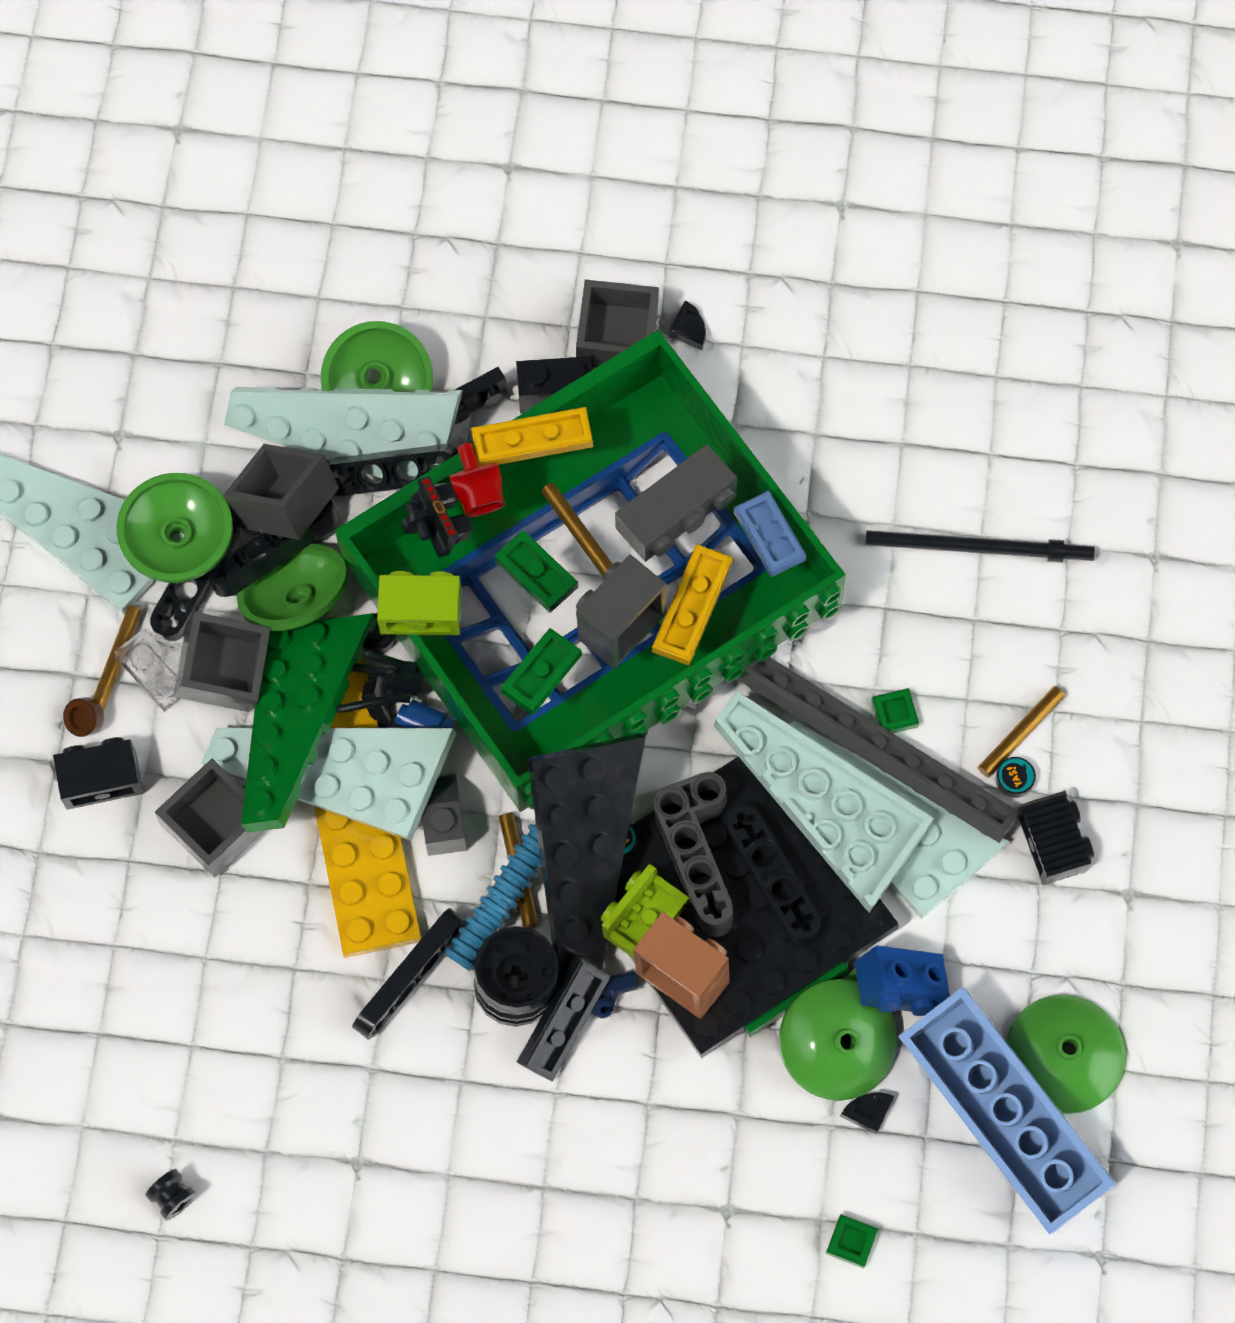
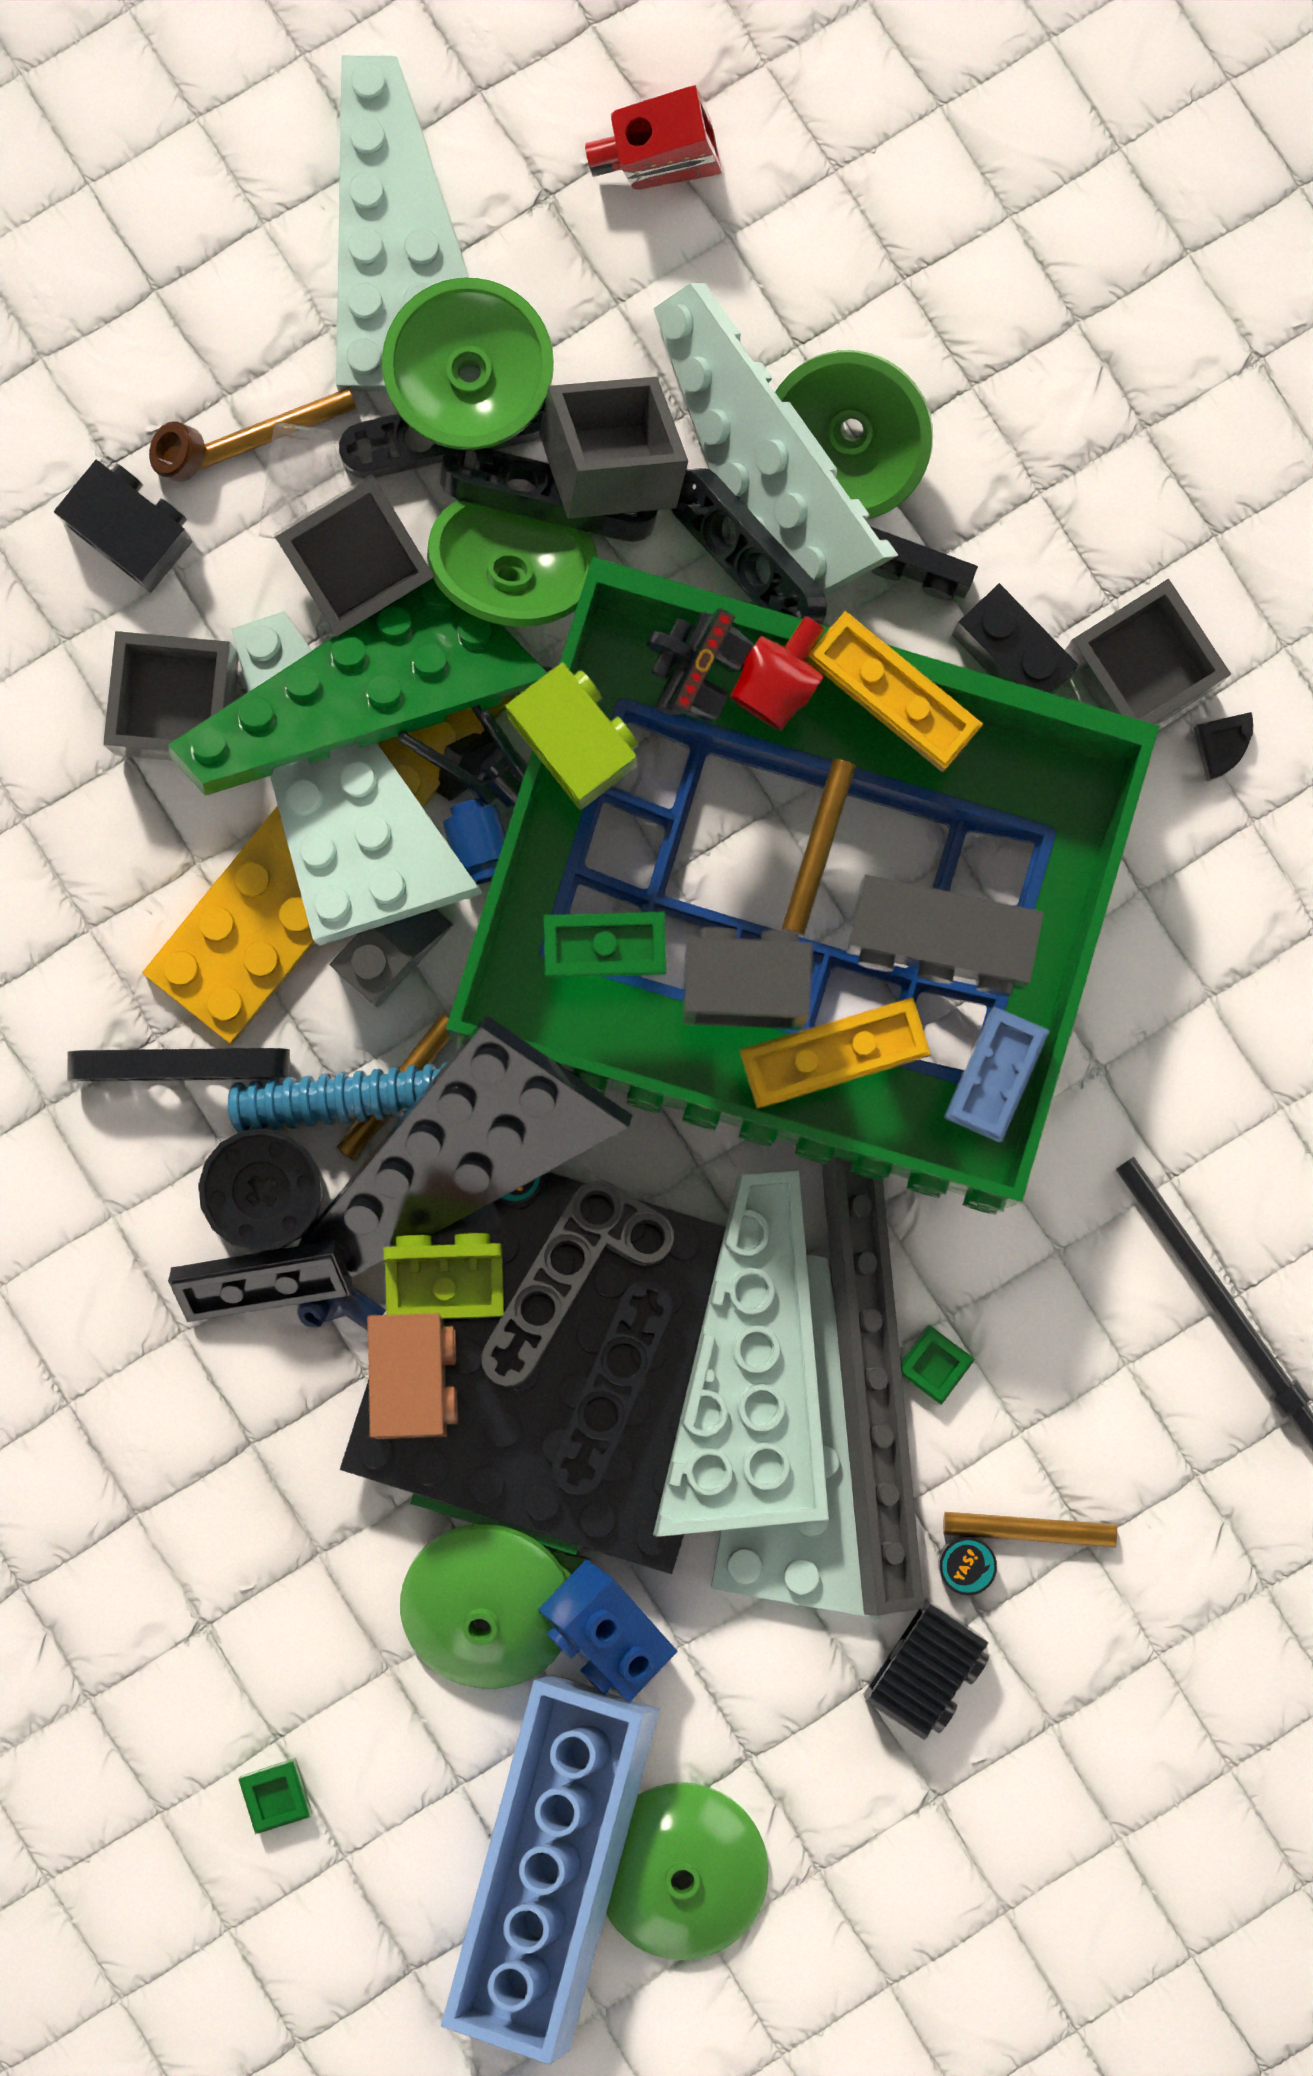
camera: 50 degrees right, 15 degrees up
(144, 351) = (659, 141): none -> red torso
(536, 571) = (725, 837): green plate -> none
(868, 1110) = (438, 1700): black tile -> none

